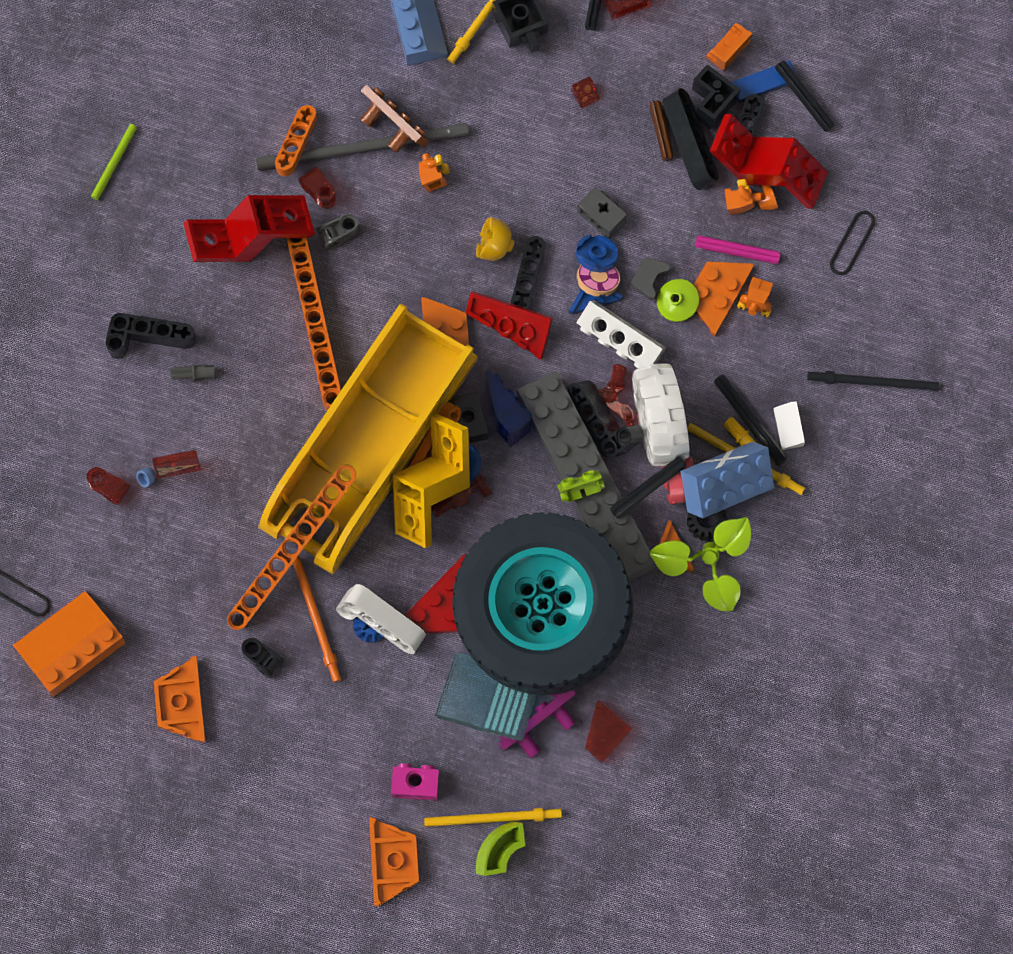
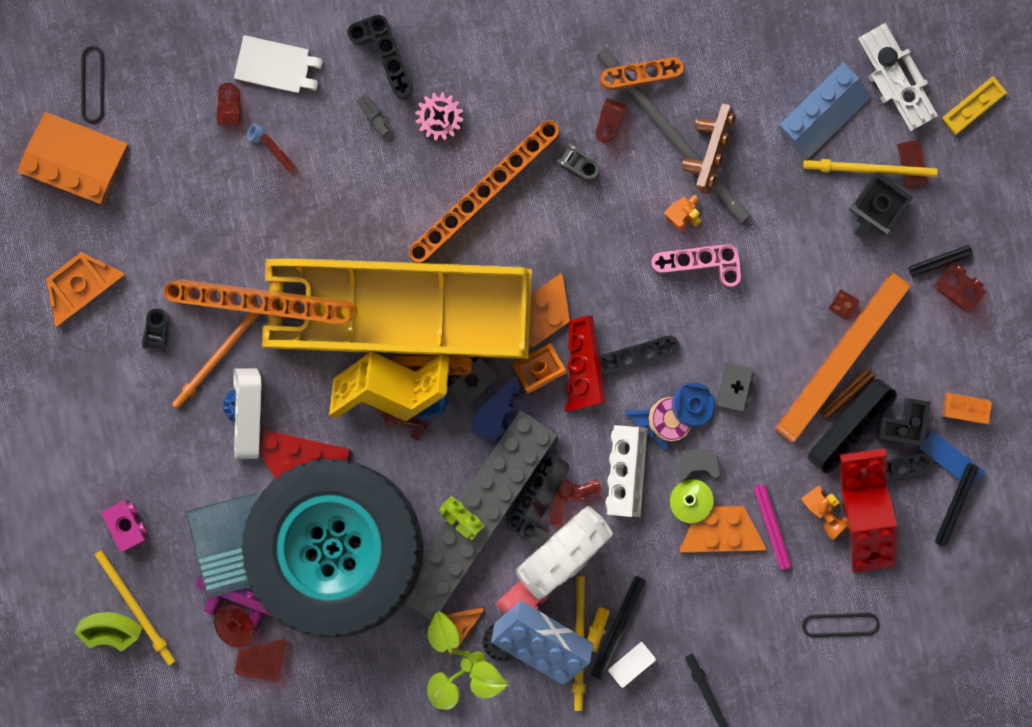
camera: 60 degrees right, 15 degrees up
(99, 428) = (275, 65): none -> white tile
(237, 319) = (447, 110): none -> bright pink gear
(249, 228) = (528, 86): red bracket -> none
(393, 861) = (48, 545): orange wing -> none
(479, 186) = (695, 263): none -> bright pink beam
(492, 356) = (539, 369): none -> orange slope
(495, 240) = (651, 307): yellow cylinder -> none
(562, 747) = (233, 626): none -> clear red dish
(629, 117) = (842, 357): none -> orange beam
(648, 487) = (491, 578): black axle -> none
(757, 297) = (734, 571): orange piece -> none

